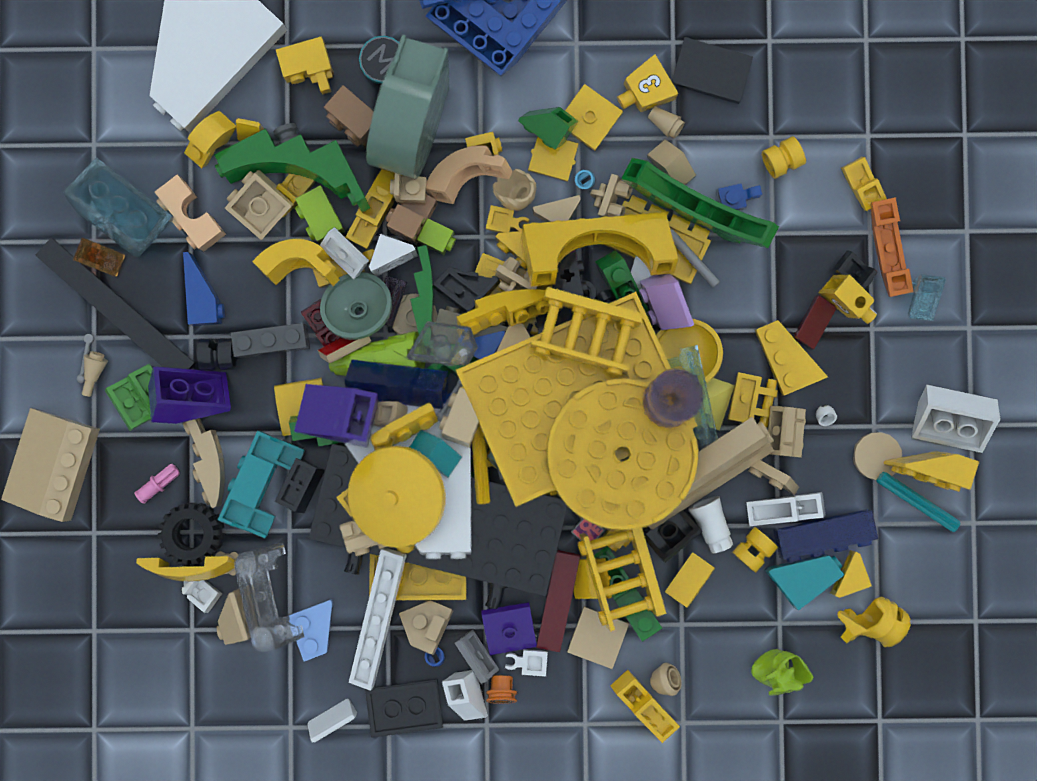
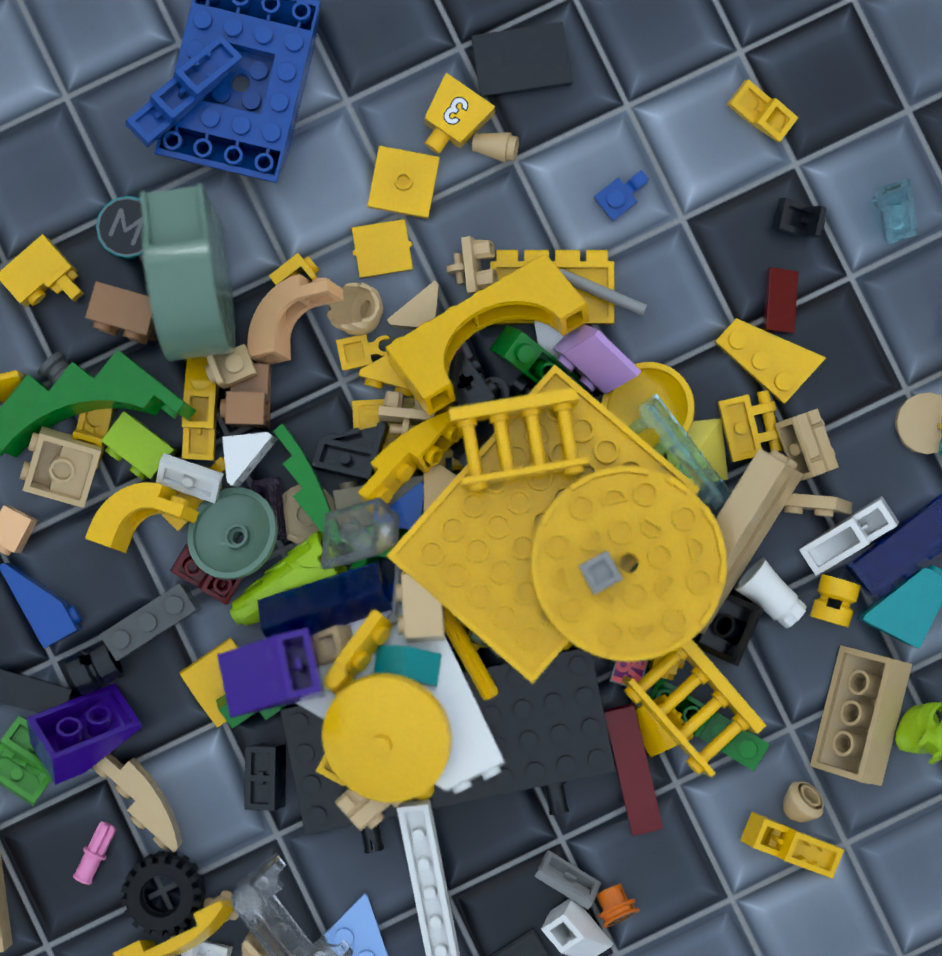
camera: 30 degrees left, 0 degrees up
(252, 481) = (207, 797): teal bracket -> none
(341, 348) = (238, 592): tan tile -> none
(424, 583) = (466, 822): yellow wing -> none
(426, 625) = (490, 870): tan plate -> none
(431, 661) = (515, 909): blue hinge -> none
(436, 237) = (289, 407): lime brick -> none
(509, 628) = (590, 829): dark purple plate -> none
(532, 662) = (635, 855): white plate -> none
(550, 125) = (361, 213): green slope -> none
(583, 174) = (427, 254): medium azure hinge -> none
(596, 641) = (699, 797): tan tile -> none
(599, 451) = (600, 572): none -> light grey tile
(672, 162) = (526, 192): tan slope -> none
(685, 394) = (670, 459): clear purple wheel -> none
(690, 580) = (775, 672): yellow hinge -> none
(696, 207) = (580, 230): green arch -> none
(735, 638) = (860, 715): none -> tan slope
(786, 156) = (656, 120): yellow wheel -> none
(830, 416) = (850, 401): white hinge -> none
(849, 297) = (807, 253): yellow torso -> none
(889, 247) = (827, 172): orange slope -> none

